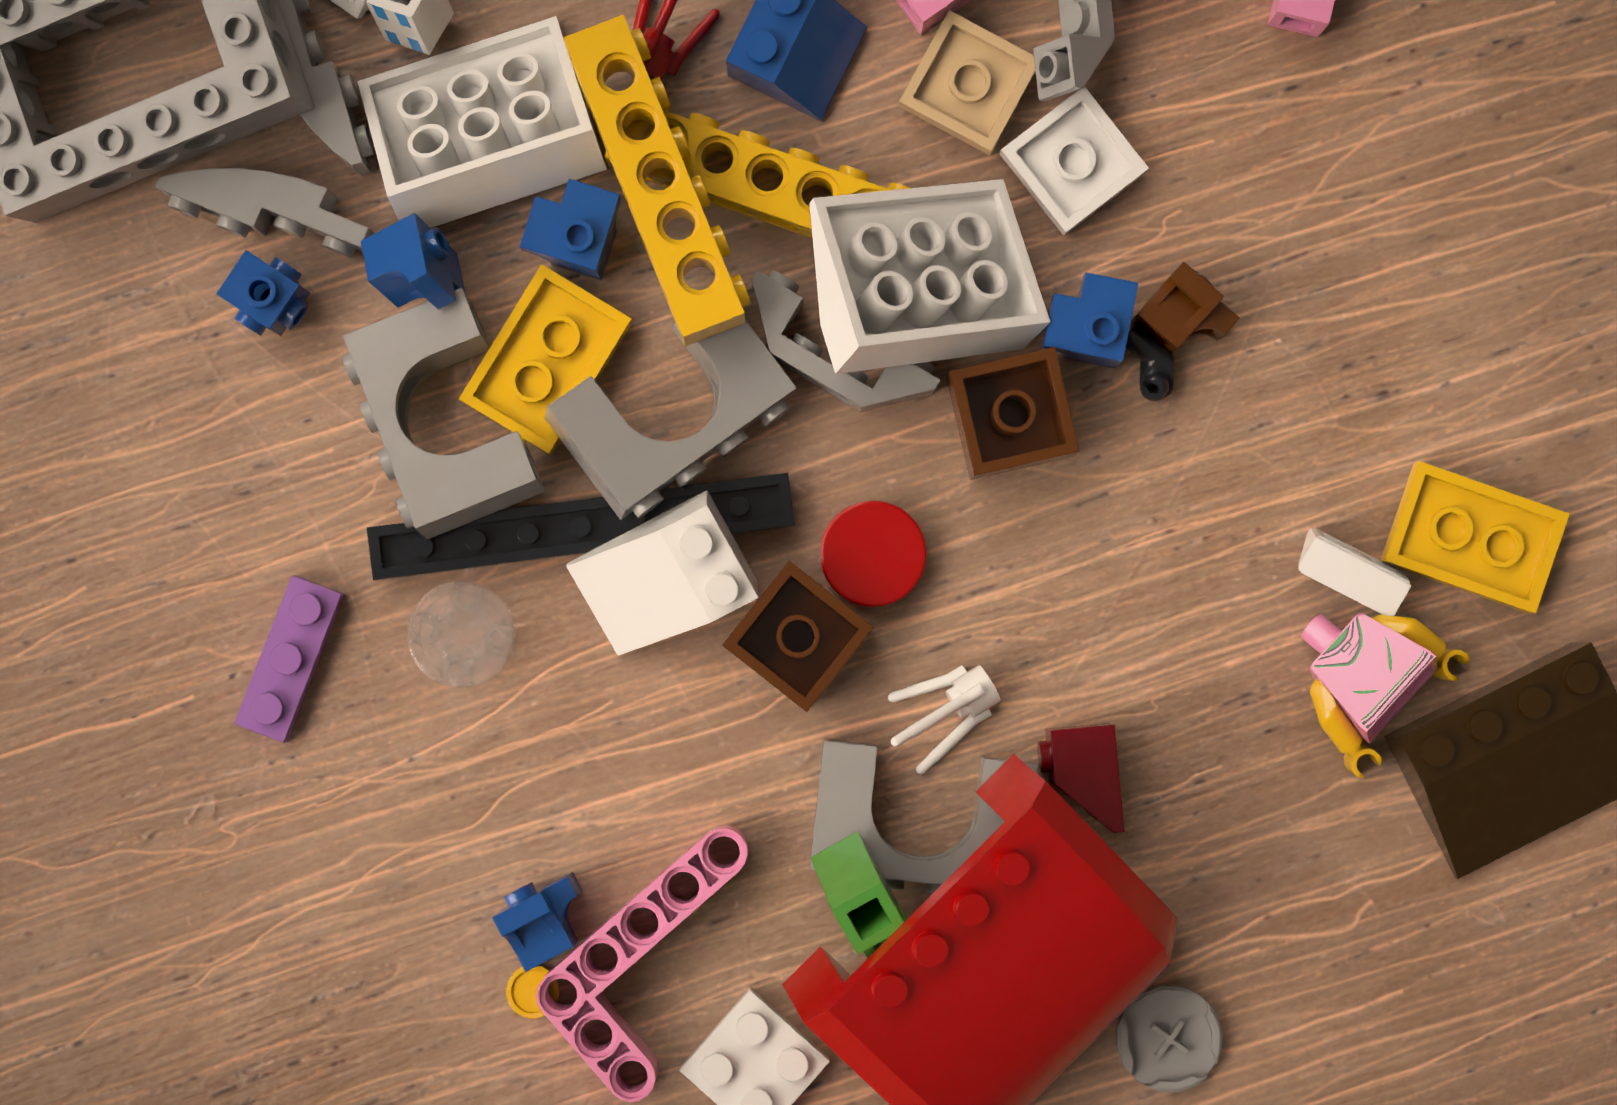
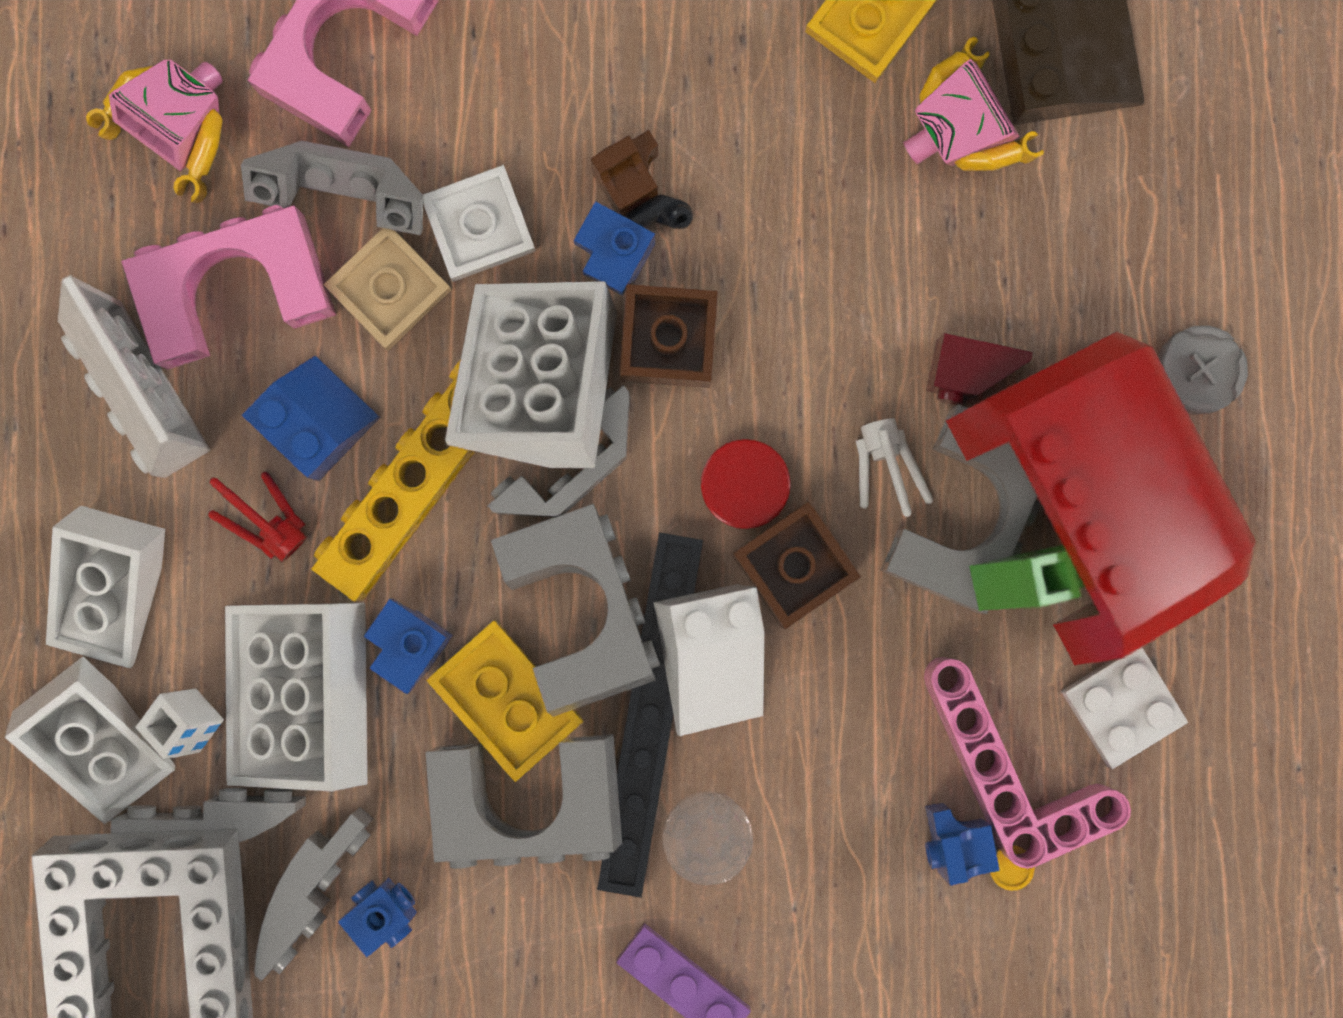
camera: 80 degrees left, 0 degrees up
(412, 263) = (392, 786): blue brick -> none
(595, 57) = (269, 582): yellow brick -> none
(1353, 572) = (879, 106): white slope -> none

